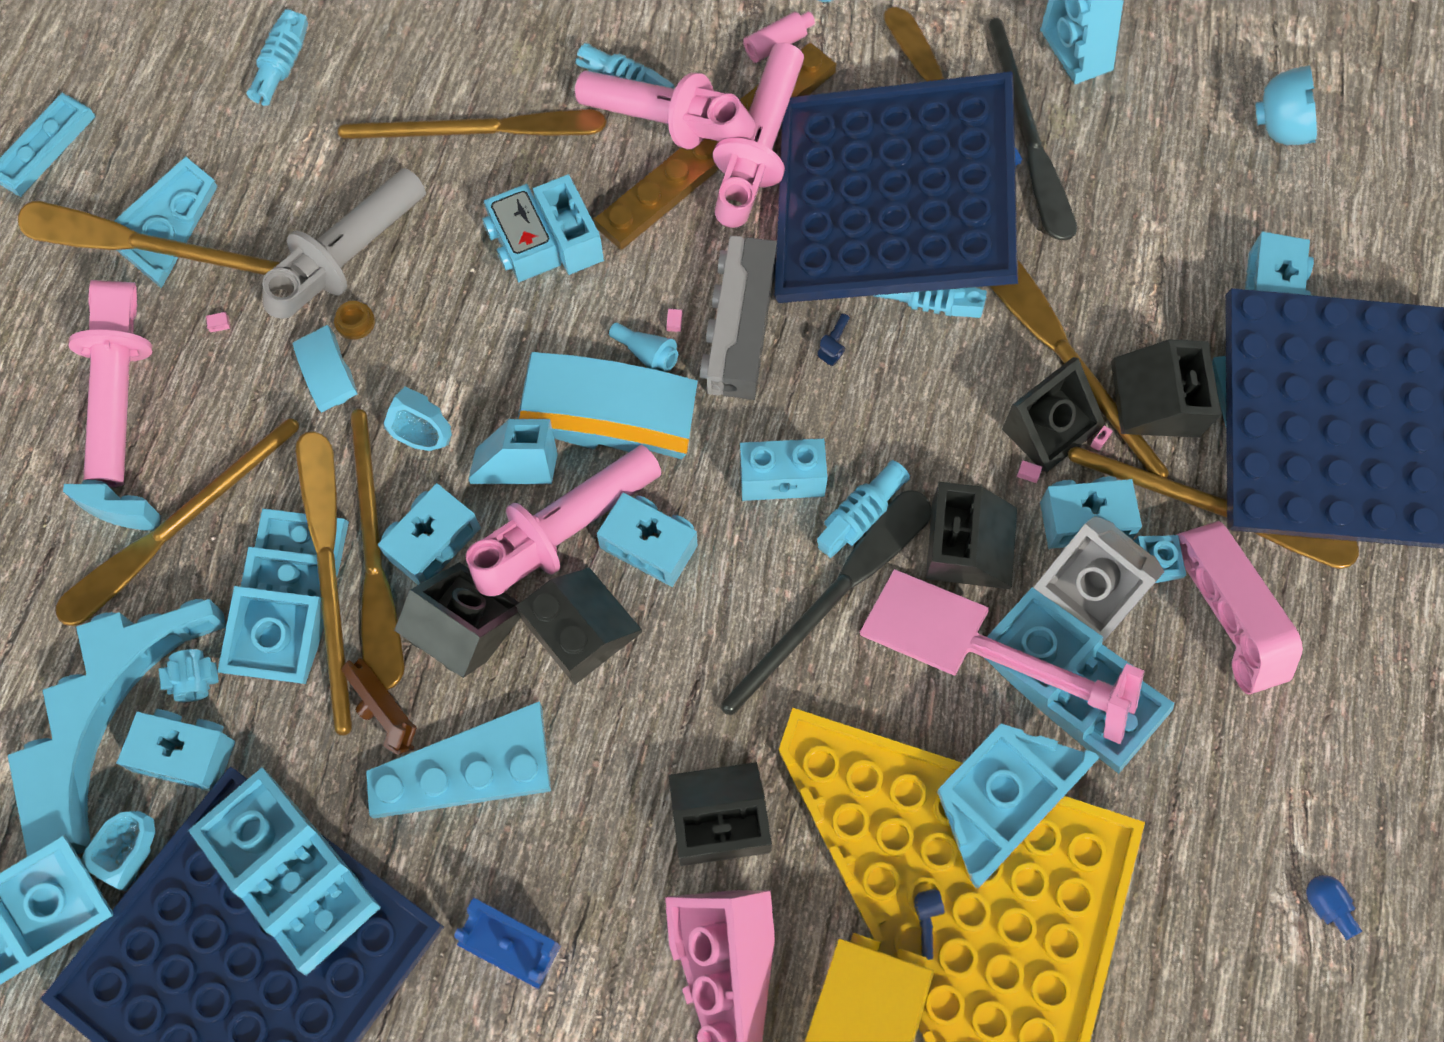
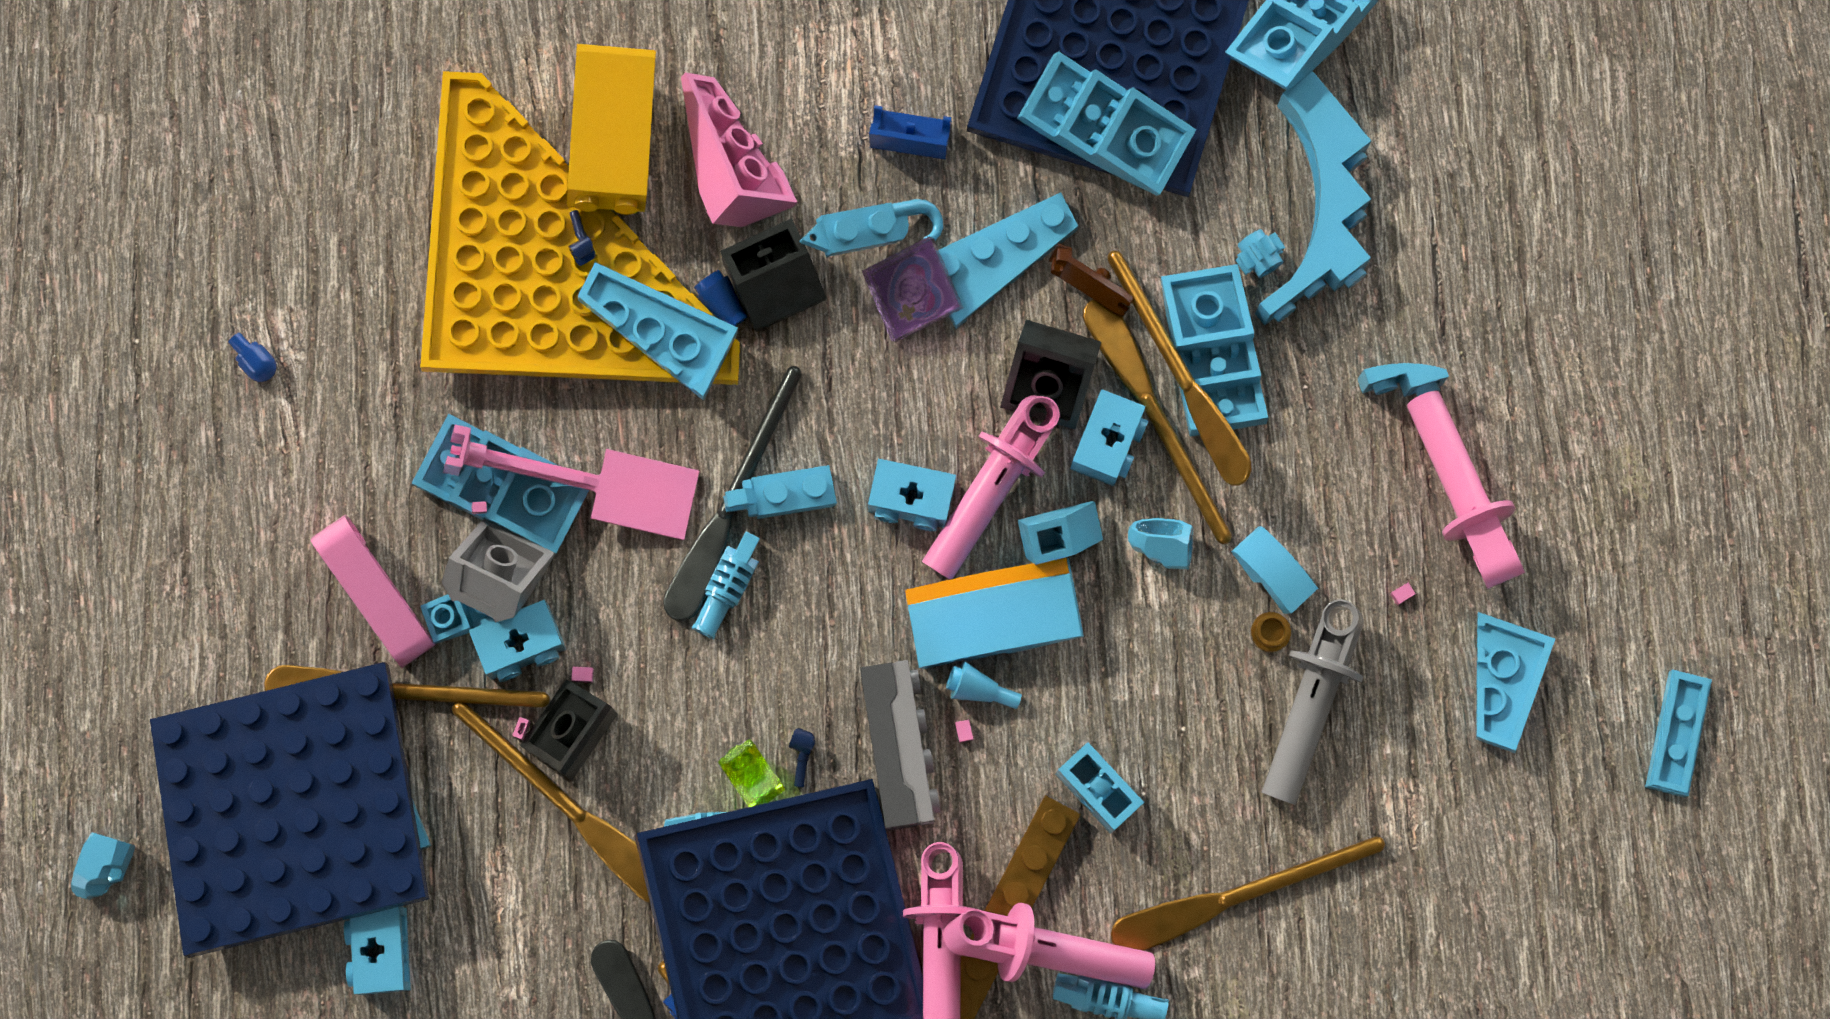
camera: 160 degrees right, 10 degrees up
(84, 230) = (1573, 630): pearl gold piece -> none
(114, 574) = (1372, 327): pearl gold piece -> none
(120, 848) = (1246, 103): rock -> none
(152, 753) = (1255, 180): medium azure brick -> none
(278, 55) = (1486, 911): medium azure hinge -> none
(522, 233) = (1148, 770): brick -> none
(571, 753) = (912, 289): none -> clear purple tile
(578, 622) = (946, 401): pearl dark grey slope -> none
(594, 831) = (869, 227): none -> medium azure plate
(779, 580) = (783, 493): none -> medium azure hinge
(783, 469) = (810, 595): medium azure brick -> none
(786, 811) = (720, 298): none -> blue cone
(856, 778) = (665, 329): none -> medium azure wing
(887, 327) = (751, 774): none -> clear neon green bracket
(971, 537) = (620, 580): pearl dark grey slope -> none
(1006, 794) = (538, 352): medium azure wing -> none
(1106, 649) = (479, 507): none -> bright pink piece
(1166, 389) = (471, 782): pearl dark grey slope -> none

